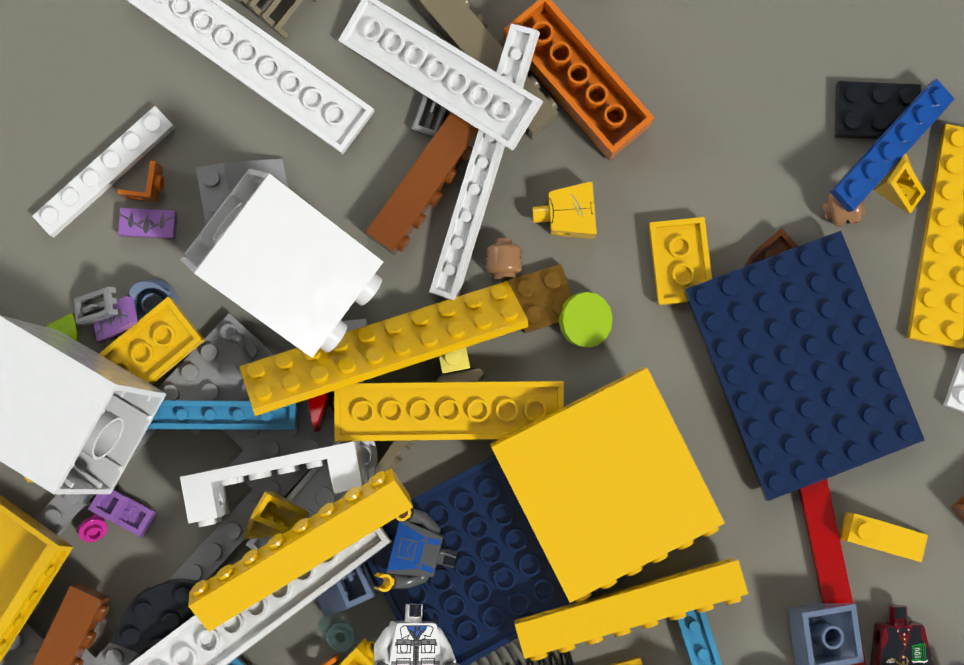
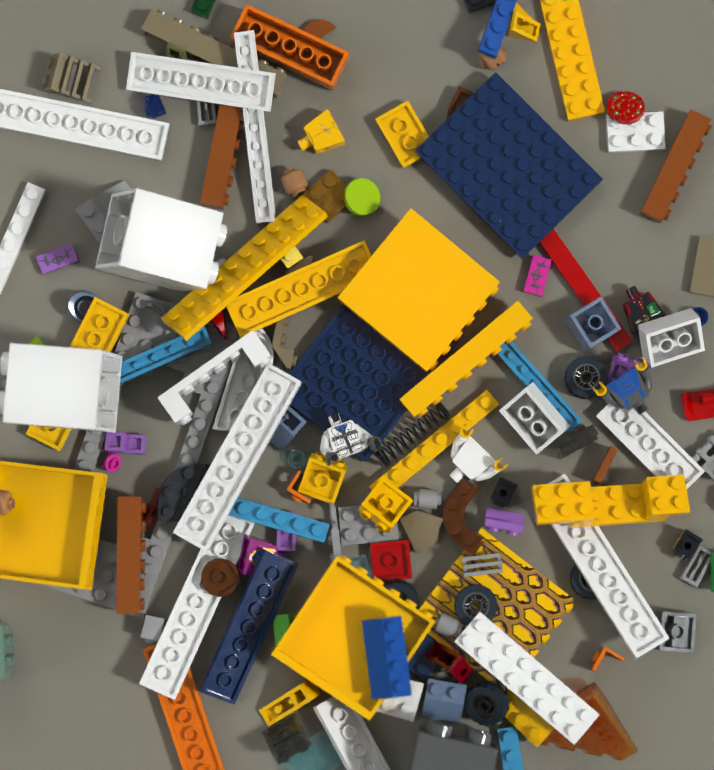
camera: 25 degrees left, 0 degrees up
(107, 304) = (59, 317): light grey tile -> none
(113, 326) = (66, 326): medium lavender tile -> none
(113, 618) = (151, 509): none -> clear red axle
(155, 183) = (51, 231): orange bracket -> none
(273, 516) = (224, 402): yellow slope -> none
(299, 549) = (250, 407): yellow brick -> none
(364, 78) = (154, 106): none -> clear blue plate
(415, 552) = (319, 382): torso -> none
(424, 18) = (175, 52): none -> olive slope
(629, 70) = (319, 28): none -> dark orange tile
(776, 530) = (537, 275): none -> dark pink tile
(883, 536) = (604, 249): yellow slope -> none

